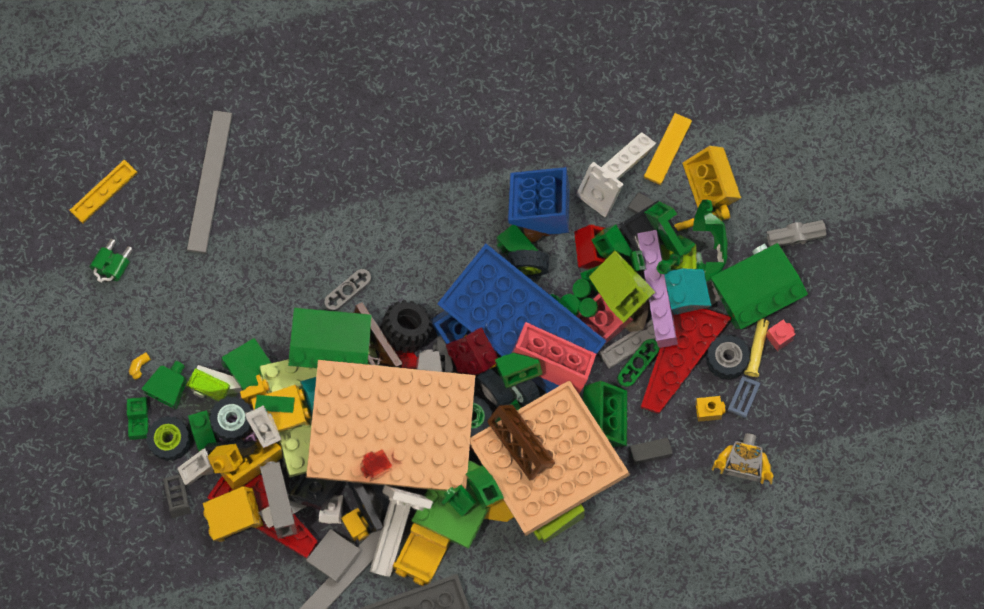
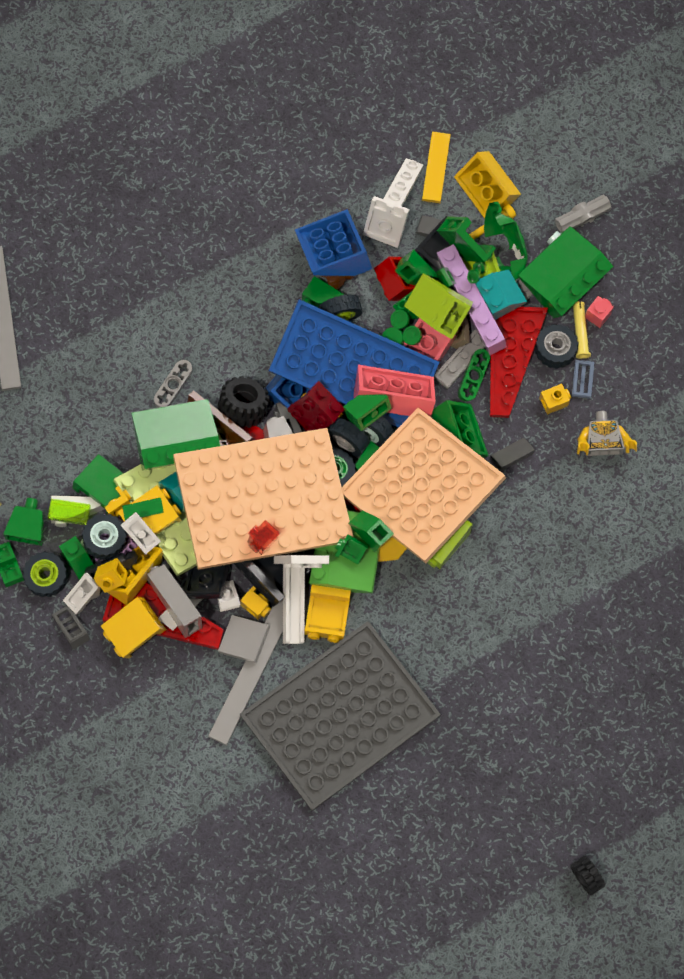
camera: 25 degrees left, 0 degrees up
(522, 437) = (396, 472): reddish brown fence -> none

